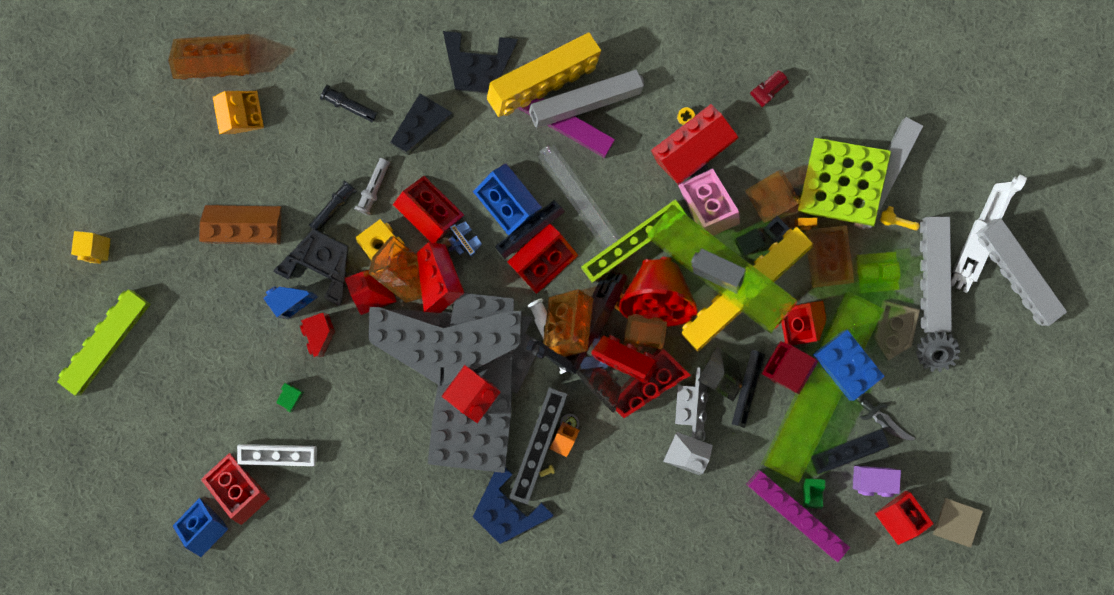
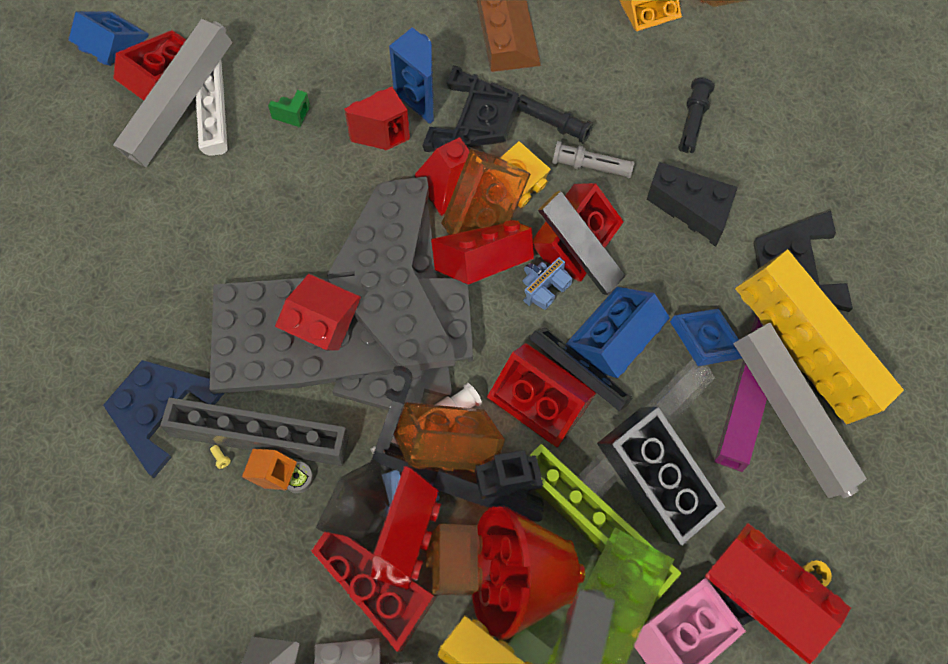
camera: 80 degrees right, 20 degrees down
(266, 479) = (173, 92): none -> light grey brick
(444, 210) = (581, 242): none -> tile
(523, 142) = (706, 336): none -> blue tile
(601, 291) = (508, 475): none -> black brick
(614, 196) = (661, 475): none -> black brick

